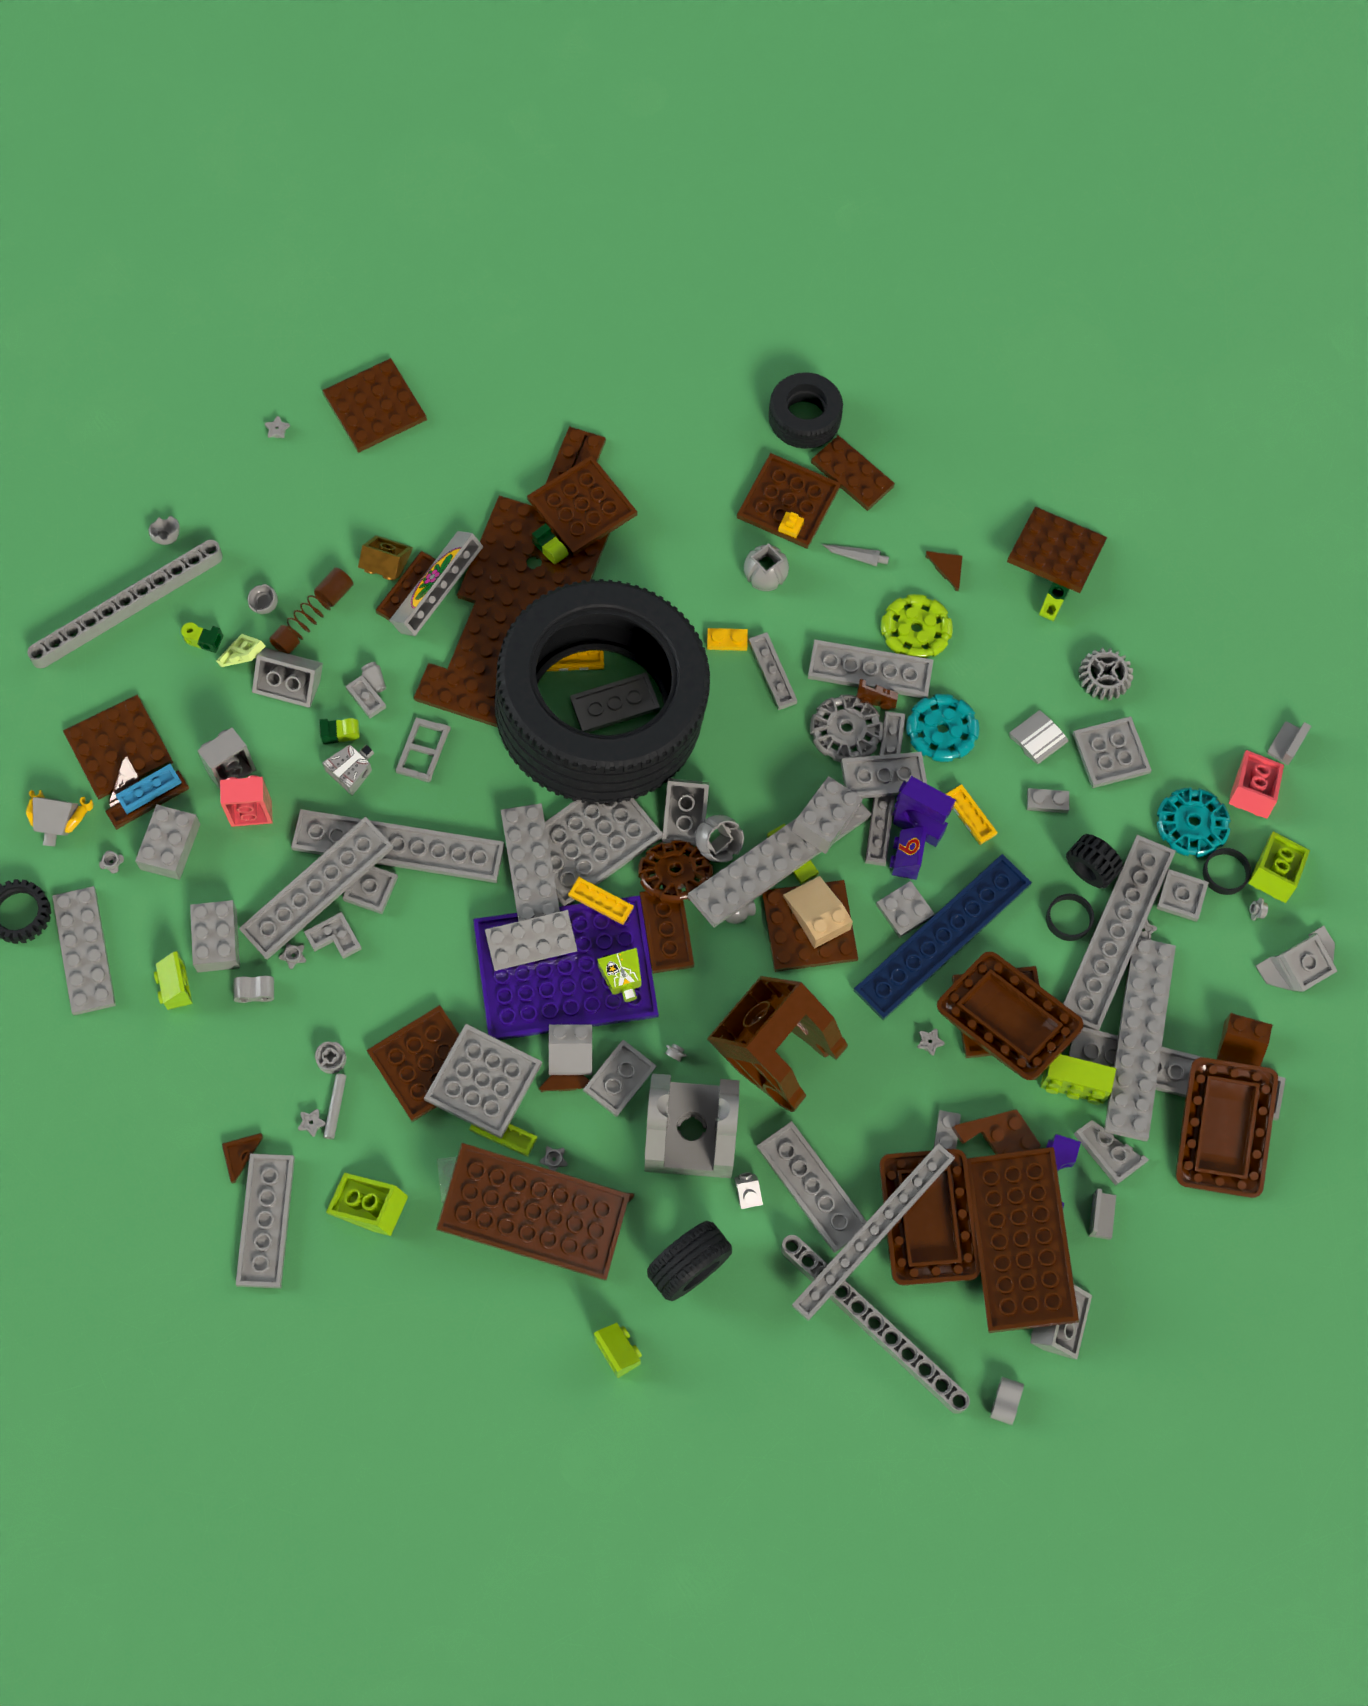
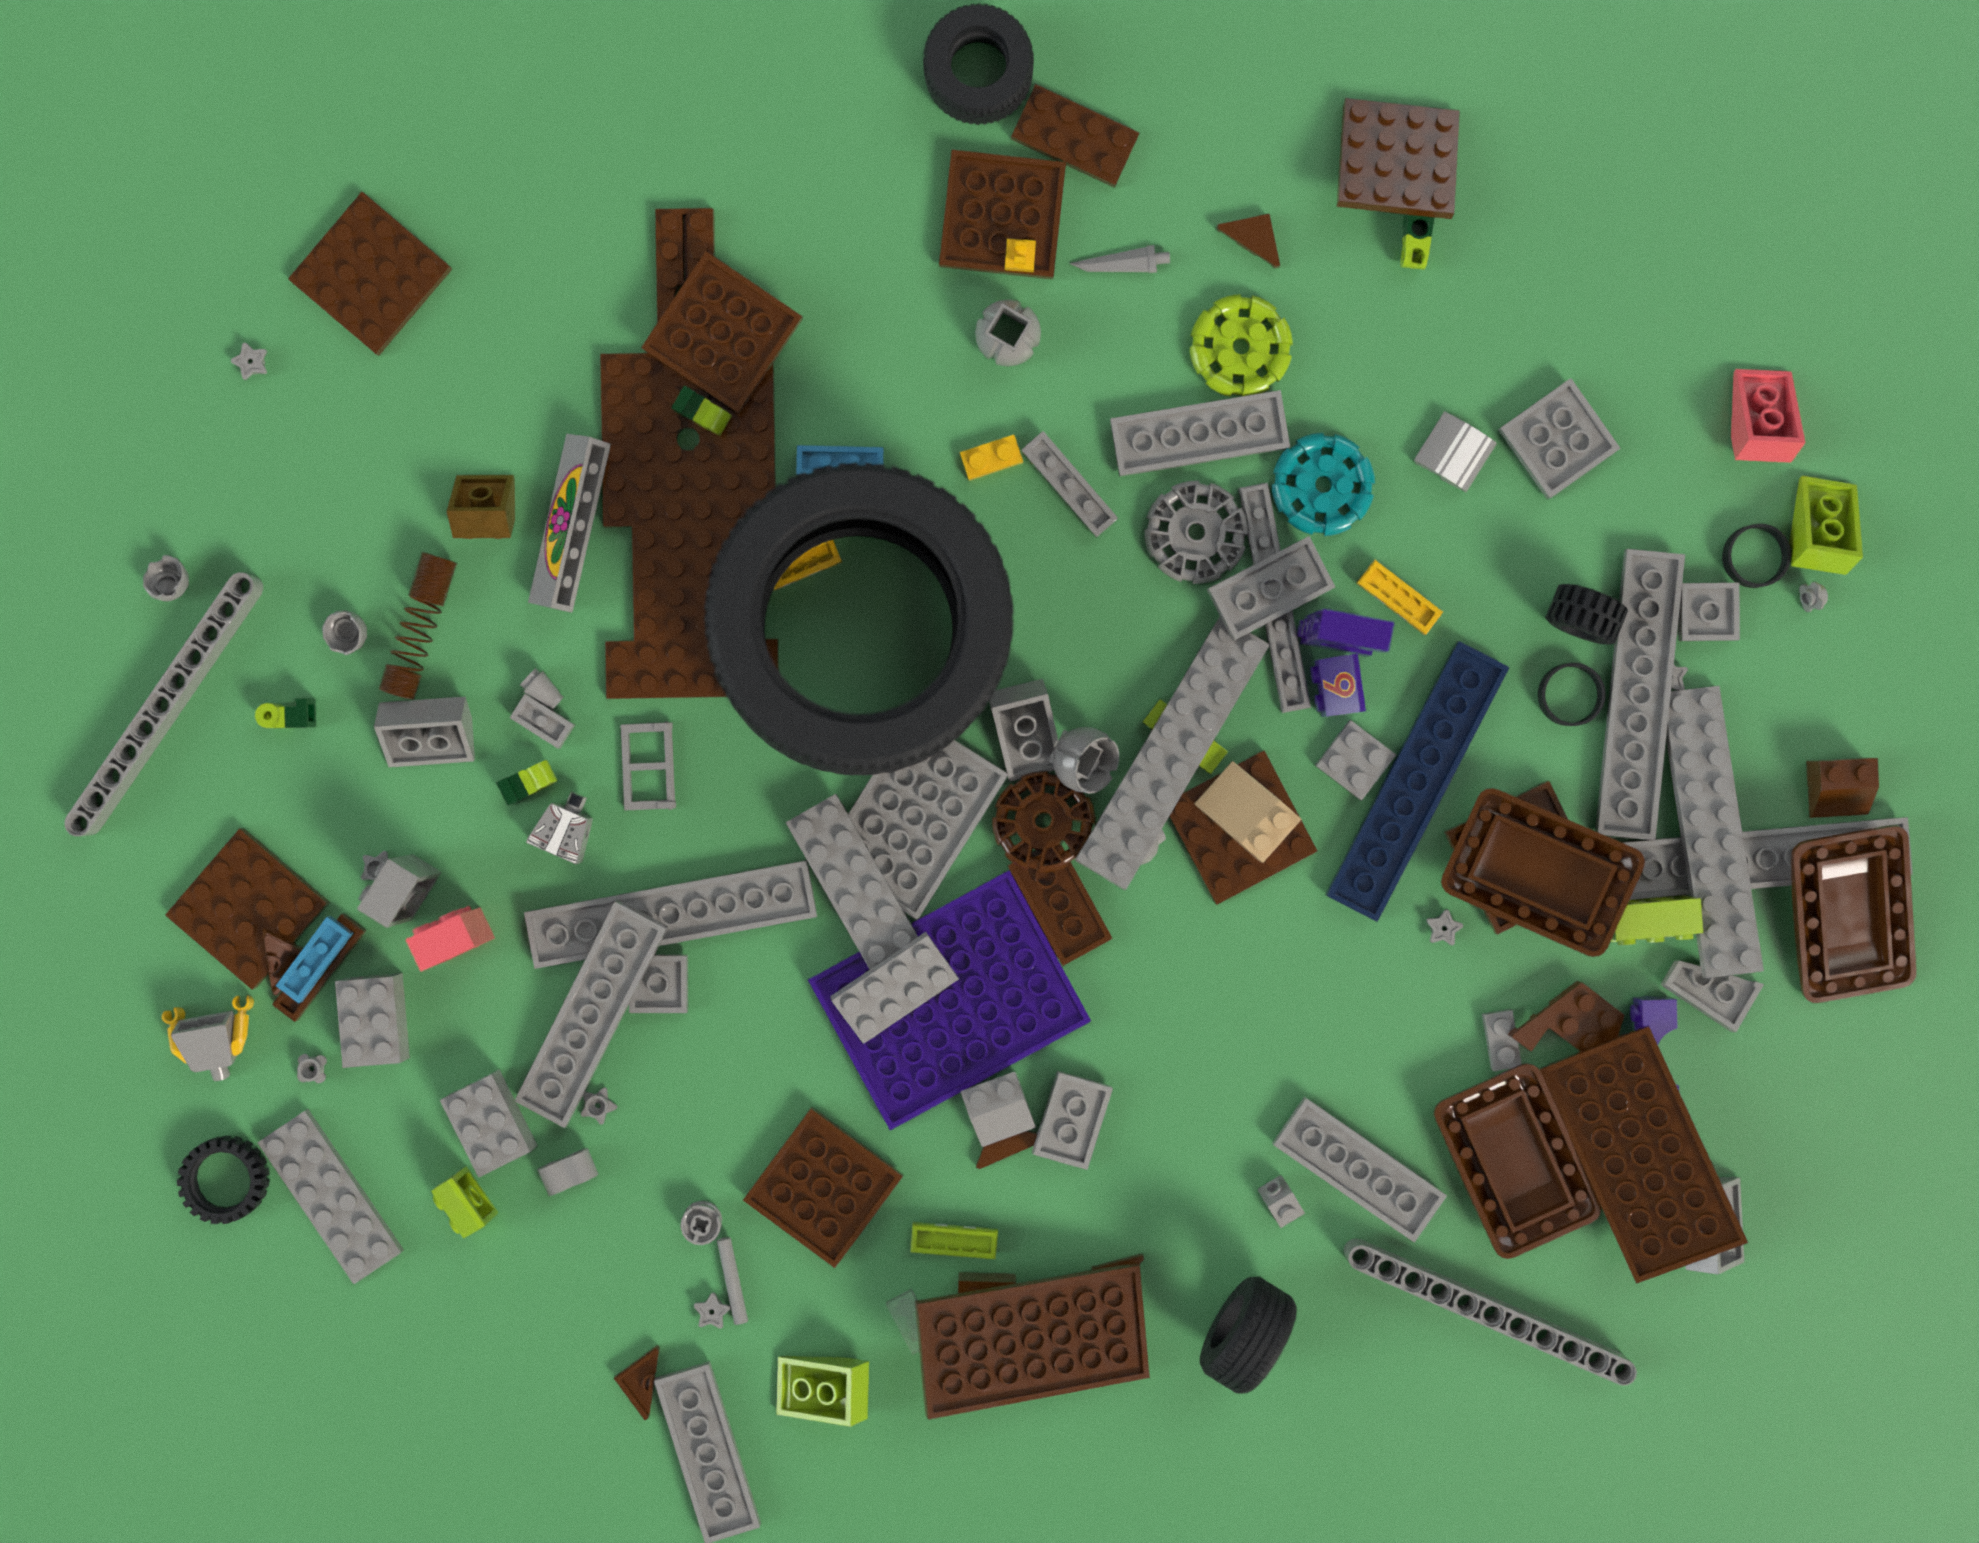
camera: 20 degrees left, 20 degrees up
(242, 650) = (349, 719): yellowish green wing -> none
(334, 930) = (637, 1057): light grey plate -> none
(405, 585) = (528, 536): reddish brown tile -> none
(483, 1081) = (905, 1191): light grey plate -> none
(558, 1154) = (1035, 1246): light grey plate -> none
(601, 900) = (963, 900): yellow plate -> none
(614, 703) = (875, 608): light grey plate -> none
(617, 1349) = (1193, 1458): lime slope -> none
(622, 973) = (1027, 990): lime torso -> none
(675, 1052) = (1129, 1060): light grey plate -> none
(710, 1104) = (1225, 1170): light grey brick -> none
(762, 1023) = (1266, 992): reddish brown brick -> none
(827, 814) = (1217, 679): light grey brick -> none
(872, 1232) = (1458, 1210): light grey plate -> none
(877, 696) = (1235, 473): reddish brown wing -> none
(1006, 1400) = (1677, 1345): light grey axle -> none
(1048, 800) = (1494, 538): light grey plate -> none
(1102, 663) = (1529, 330): light grey gear -> none
(1102, 1215) = (1725, 1075): light grey panel -> none
(1188, 832) = (1677, 503): teal plate -> none
(1288, 742) = (1790, 336): light grey panel -> none
(1302, 964) = (1892, 655): light grey piece -> none

